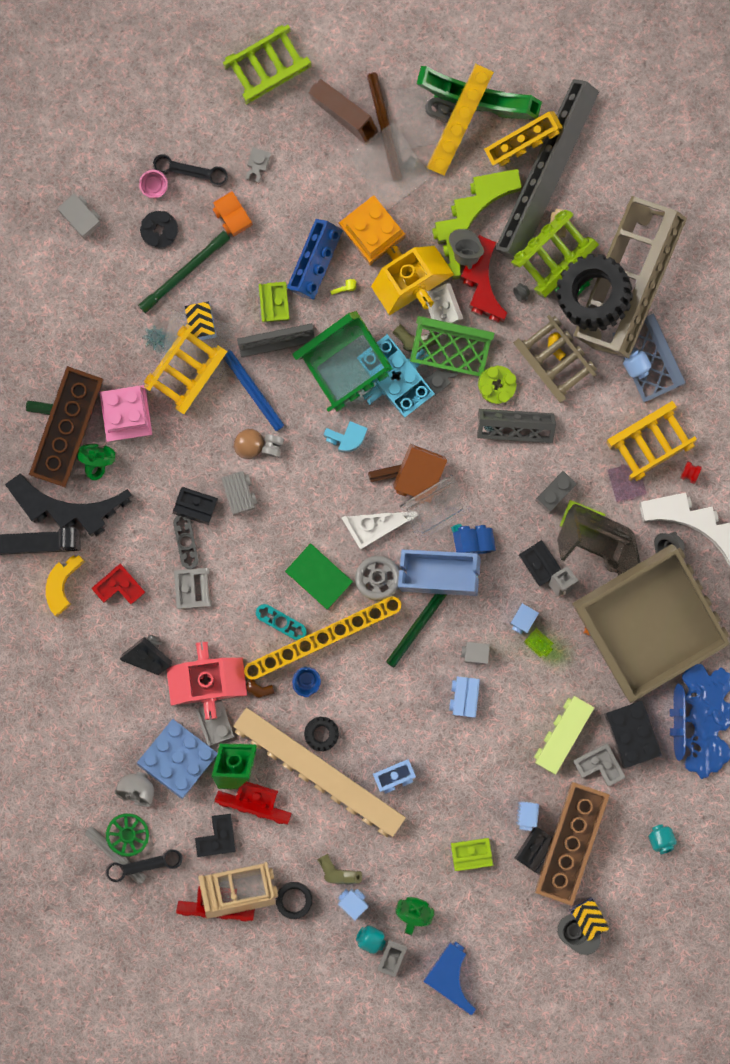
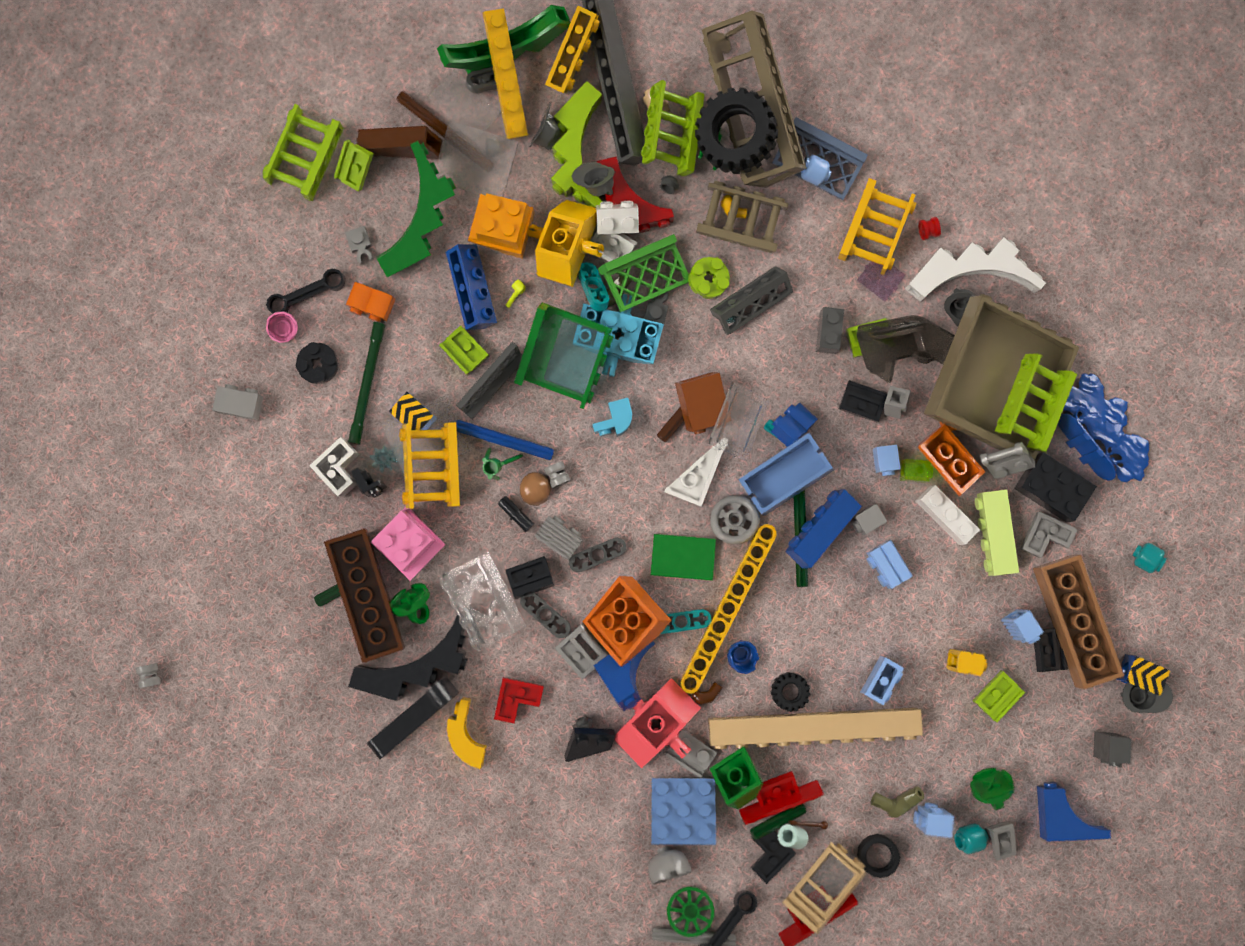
camera: 40 degrees left, 0 degrees up
(112, 315) = (331, 467): none -> white brick
(128, 347) = (367, 484): none -> black bracket
(131, 488) = (489, 573): none -> clear fence
(210, 621) = (622, 680): none -> blue arch
(220, 451) = (515, 513): none -> black axle
(230, 404) = (494, 466): none -> green plant
(240, 818) = (777, 821): none -> dark green axle
(241, 588) = (626, 620): none -> orange slope
(242, 837) = (793, 837): none -> light aqua brick
(253, 519) = (580, 555): none -> dark grey beam
(271, 848) = (823, 825): none -> reddish brown hinge
(294, 196) = (432, 191): none -> green arch
(296, 102) = (353, 165): none -> lime plate
(399, 331) = (595, 279): none -> teal beam
(436, 632) = (823, 528): none -> blue brick
(459, 185) = (548, 131): none -> dark grey piece
(460, 289) = (617, 218): none -> white bracket
(467, 811) = (966, 662): none -> yellow brick
(523, 952) = (1112, 748): none -> dark grey brick
(536, 693) = (947, 515): none -> white brick
(568, 653) = (951, 459): none -> orange slope
(610, 687) = (1008, 461): none -> light grey plate
(678, 667) = (1052, 409): none -> lime fence

